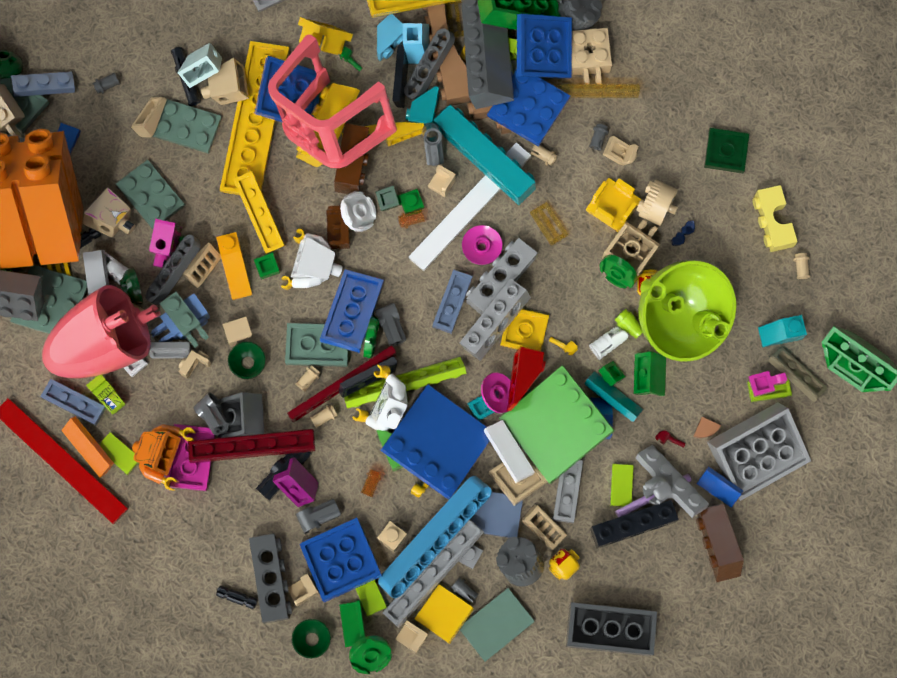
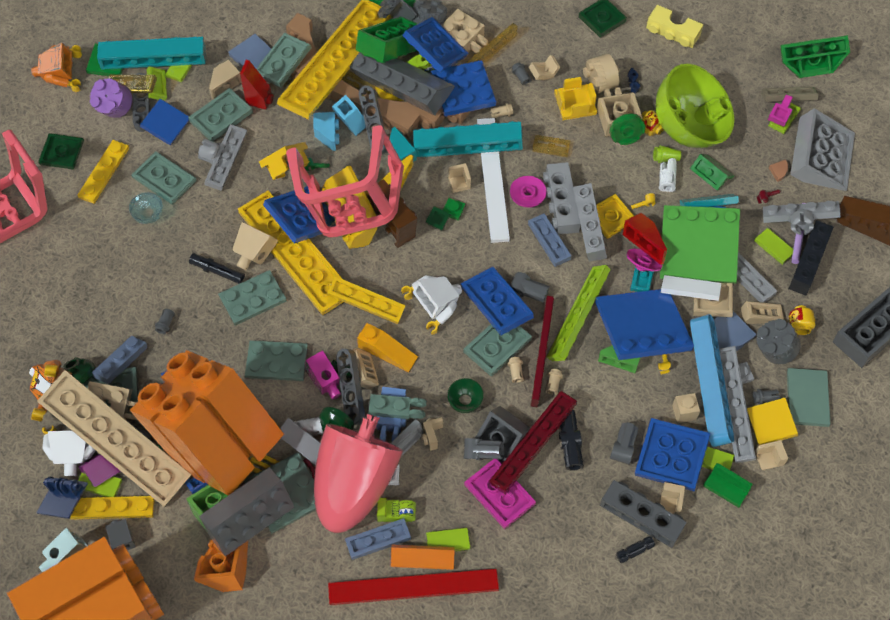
camera: 45 degrees left, 15 degrees down
(109, 215) = (268, 392): tan torso -> none
(148, 119) = (221, 315): tan slope -> none
(157, 451) = (477, 508): orange torso -> none
(206, 63) = (223, 247): light aqua torso -> none
(237, 331) = (437, 384): tan panel -> none
(266, 266) = (408, 329): green plate -> none
(297, 483) = (590, 436): magenta panel -> none
(299, 638) = (716, 512): dark green piece -> none
(337, 230) = (426, 262): reddish brown hinge -> none
(358, 211) = (429, 241): white tile -> none
(365, 378) = (555, 328): black tile -> none
(370, 340) = (527, 297): green tile -> none
(370, 654) = (762, 491): green tile -> none
(371, 483) = (631, 390): clear orange pin -> none
(389, 404) = (590, 328): white torso -> none
(400, 77) = (357, 140): black tile -> none
(411, 218) = (464, 220): clear orange pin -> none
(433, 145) = (430, 161): dark grey piece -> none
(611, 373) = (692, 191): green plate -> none
(719, 487) = (828, 191): blue tile -> none
(782, 331) = (754, 78): teal slope -> none
(802, 265) = (719, 38): tan pin -> none

